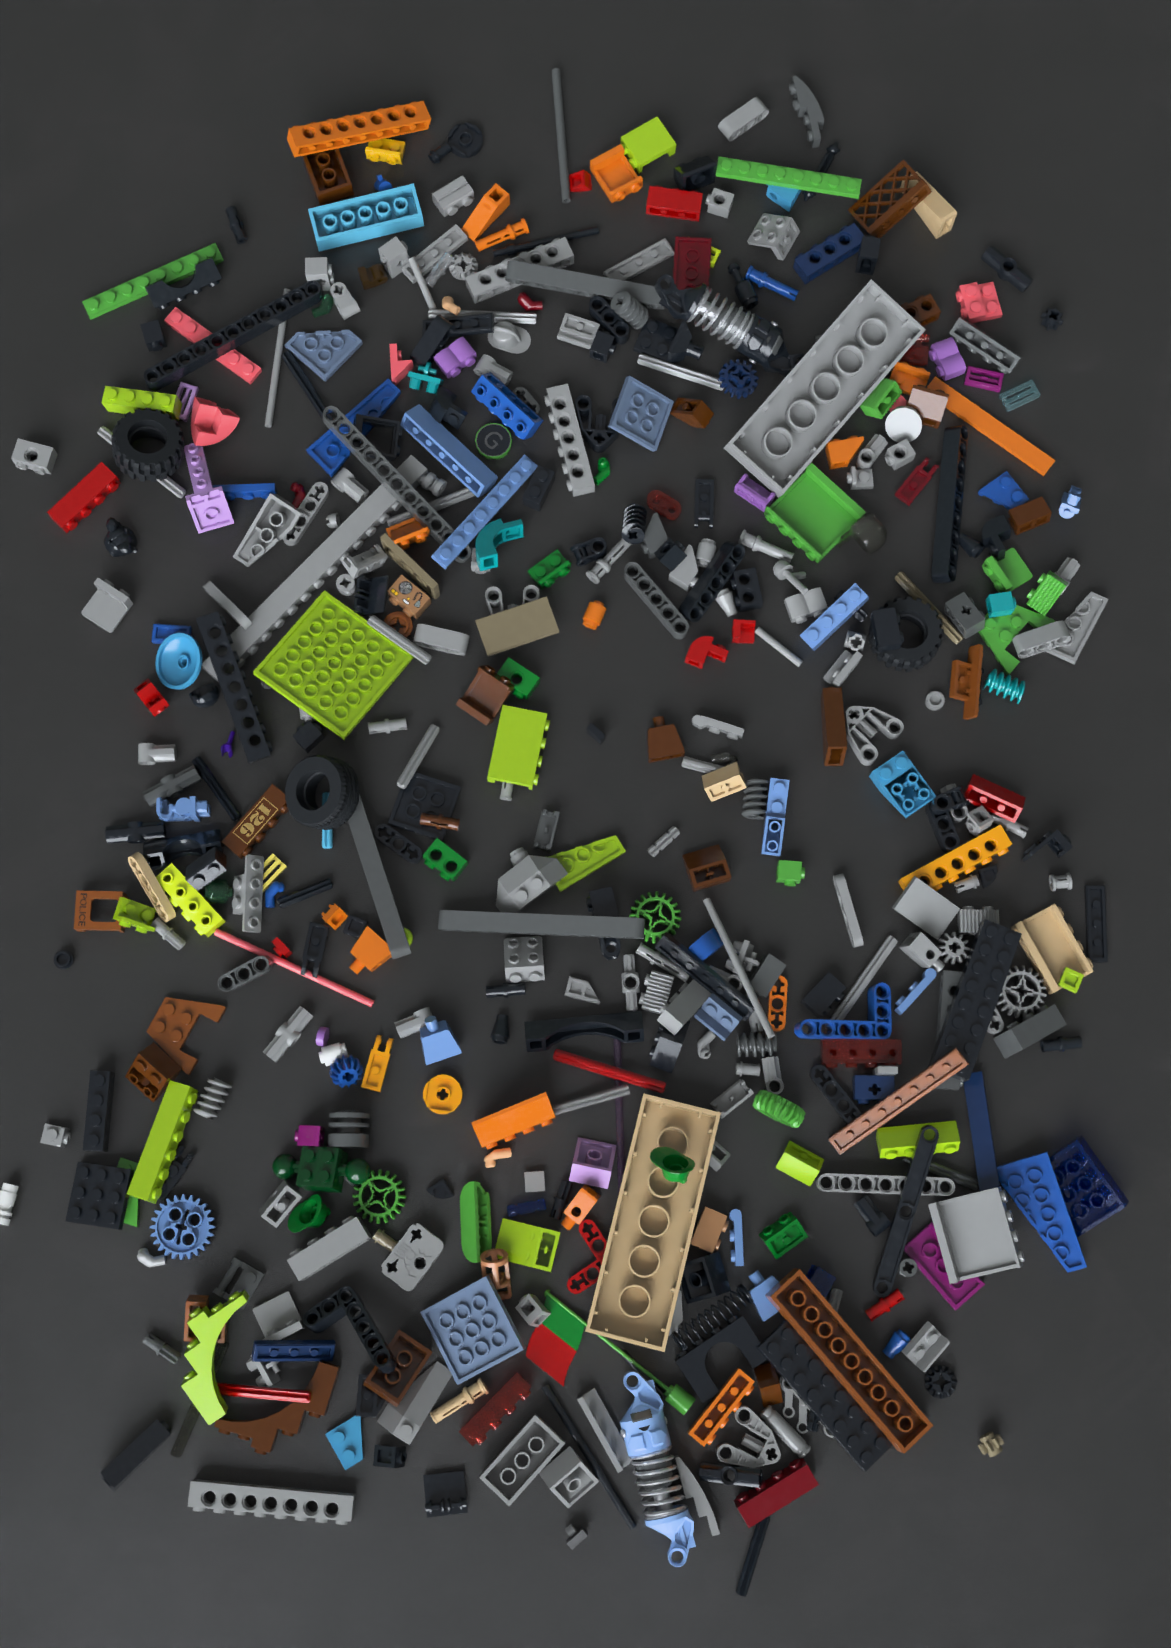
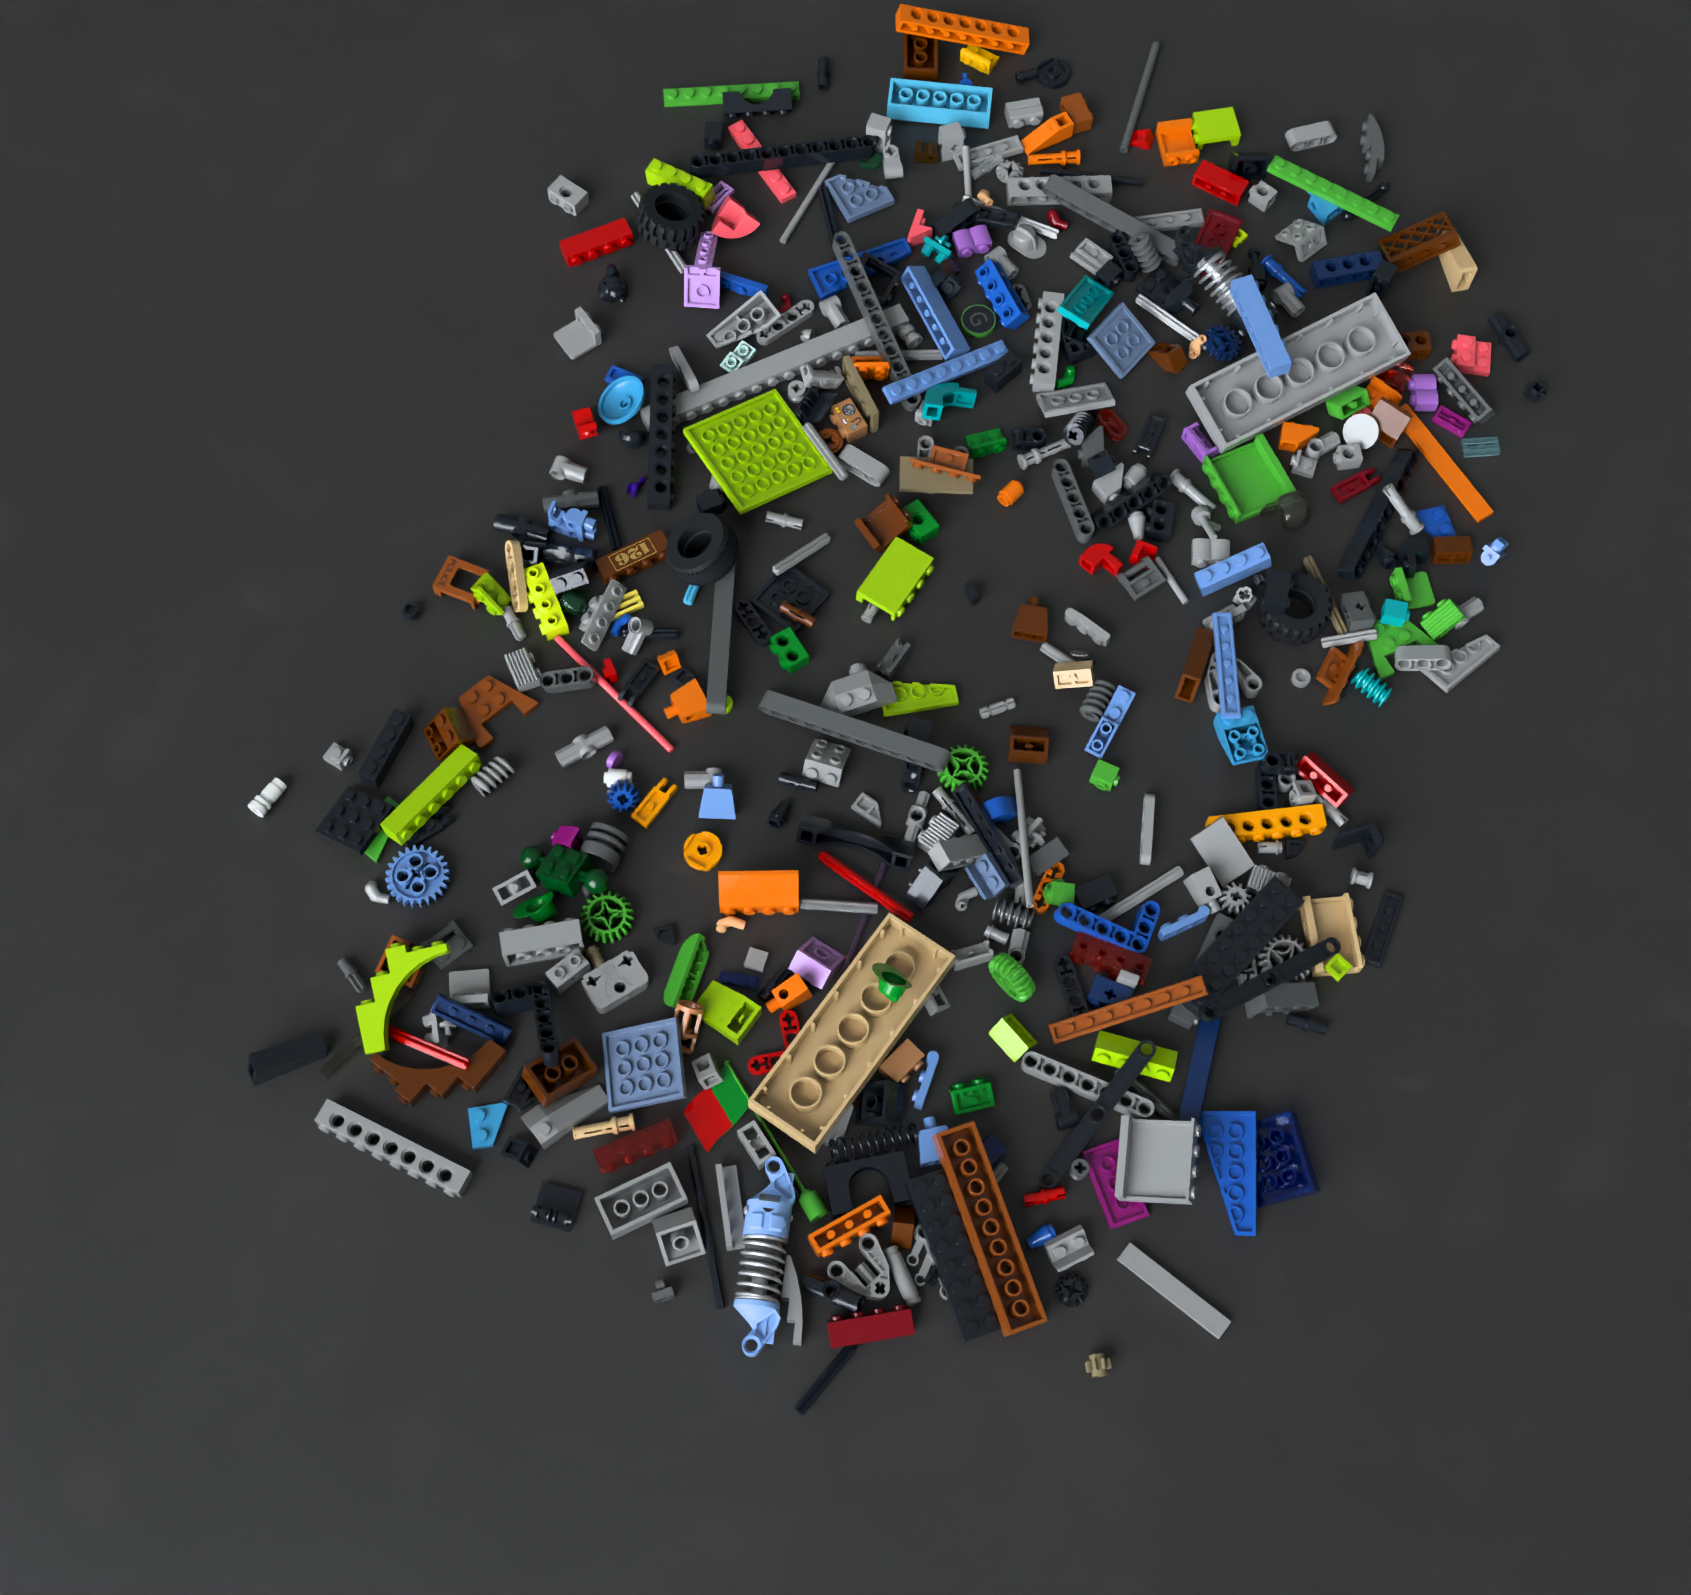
camera: 20 degrees right, 10 degrees down
(197, 979) = (522, 669): none -> light grey brick
(274, 570) = (739, 357): none -> light aqua slope
(292, 900) = (638, 630): none -> light grey piece
(364, 1265) = (568, 971): none -> light grey brick
(505, 175) = (1078, 111): none -> dark orange brick
(524, 611) = (948, 461): none -> dark orange bracket
(592, 385) = (1085, 302): none -> teal plate
(606, 1363) = (755, 1144): none -> light grey brick
(619, 492) = (1075, 399): none -> light grey tile
(714, 391) = (1195, 346): none -> light nougat arm
(755, 660) = (1145, 582): none -> dark grey plate
(774, 357) = (1260, 326): none -> medium blue brick
(780, 304) = (1286, 297): none -> light grey piece
(791, 1008) = (1059, 892): none -> bright green brick
(864, 721) = (1226, 665): none -> medium blue tile
(966, 643) = (1348, 638): none -> light grey axle
(977, 497) = (1407, 515): none -> light grey pin
(1009, 1032) = (1259, 985): none -> black beam
(1031, 1345) = (1174, 1290): none -> light grey tile

